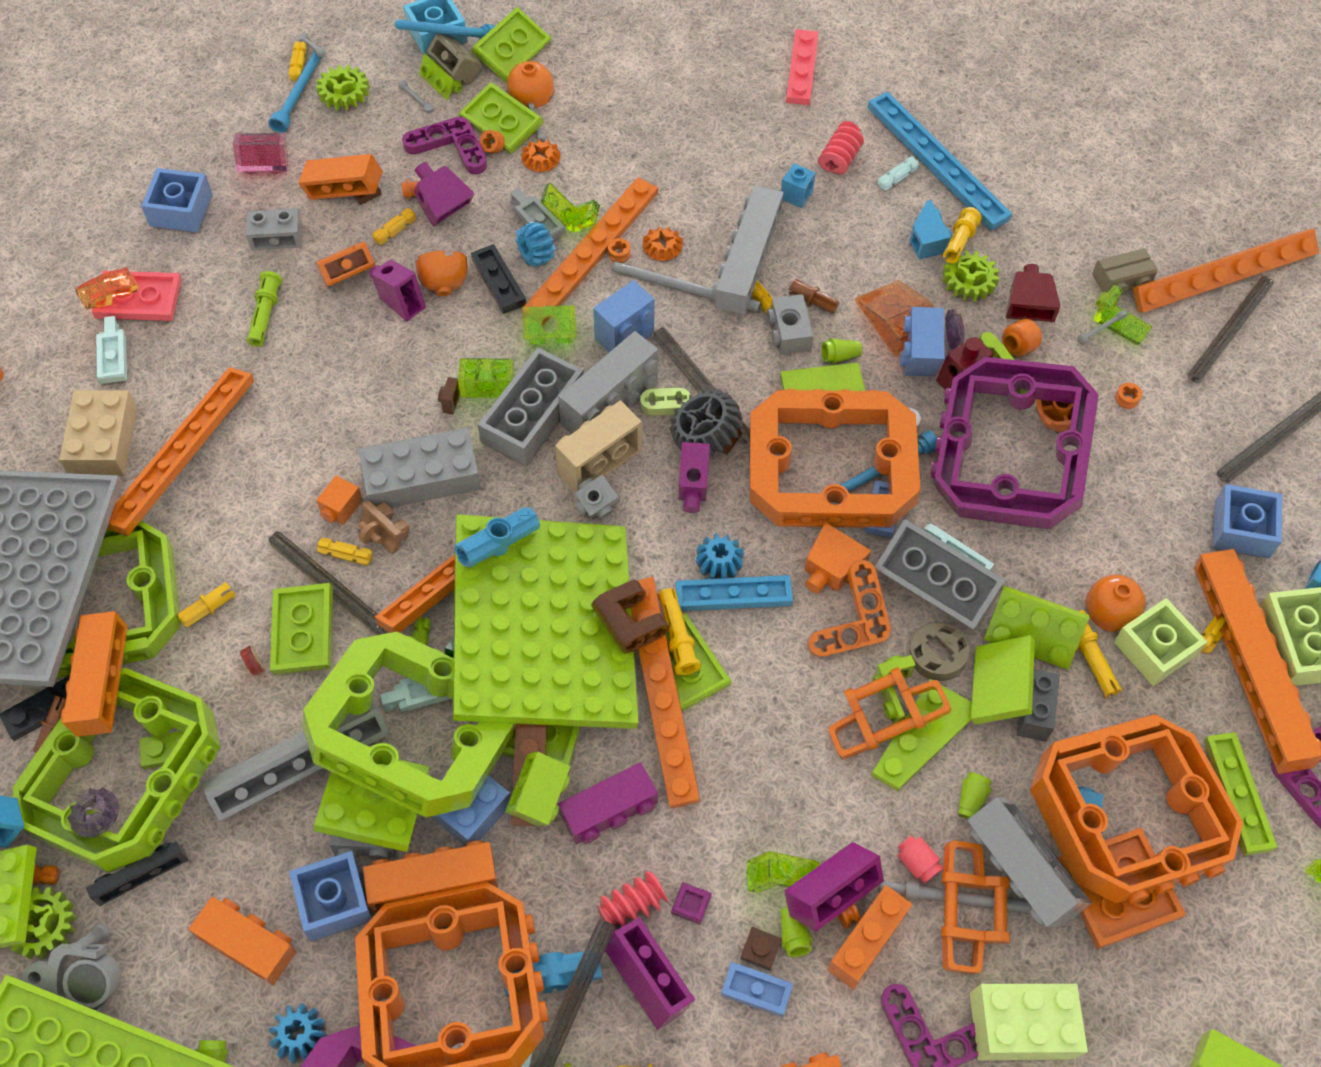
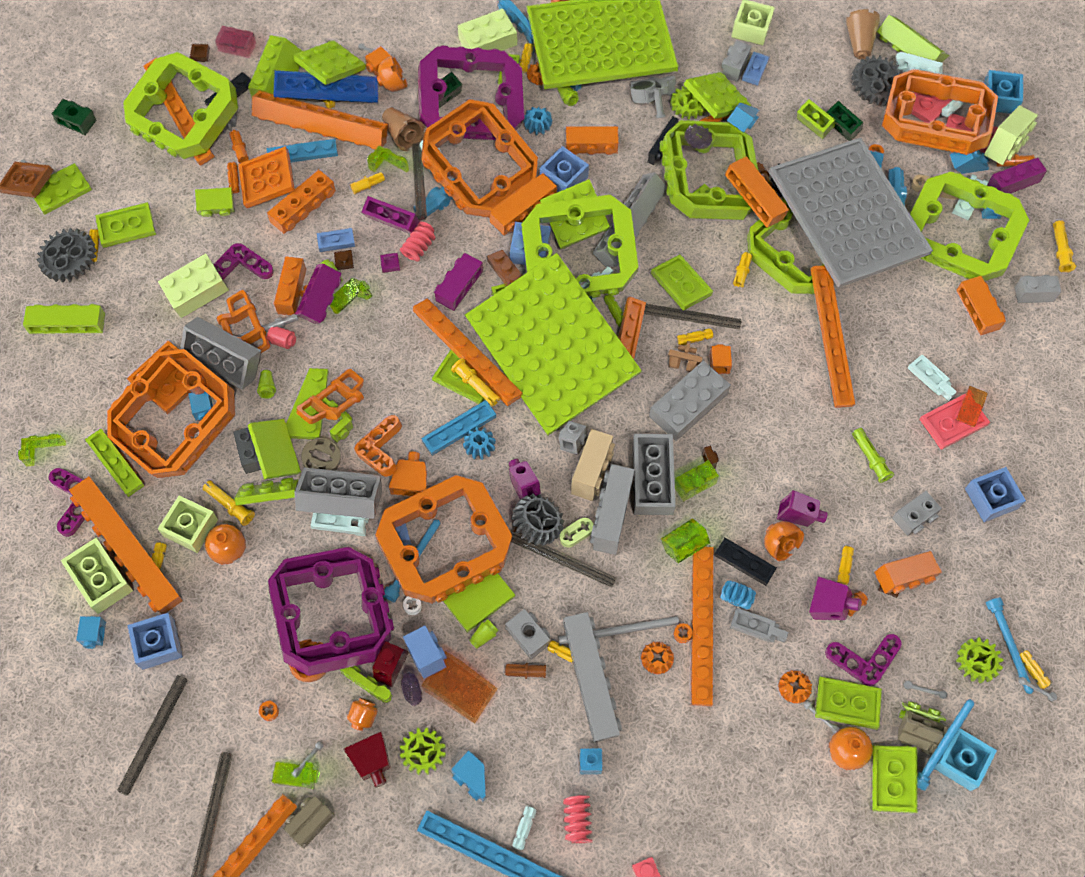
camera: 150 degrees right, 5 degrees up
(98, 432) = (887, 323): tan brick -> none
(252, 660) = (693, 255): clear red tile -> none
(260, 152) = (978, 563): clear pink brick -> none
(345, 263) = (848, 509): orange brick -> none
(494, 147) = (836, 673): orange bush -> none
(497, 537) = (600, 370): dark azure piece -> none
(538, 789) = (495, 258): lime brick -> none
(571, 216) = (737, 639): clear neon green bracket -> none
(612, 612) = (508, 356): reddish brown connector -> none
(622, 314) = (637, 563): medium blue brick -> none
(963, 230) = (445, 790): yellow pin -> none

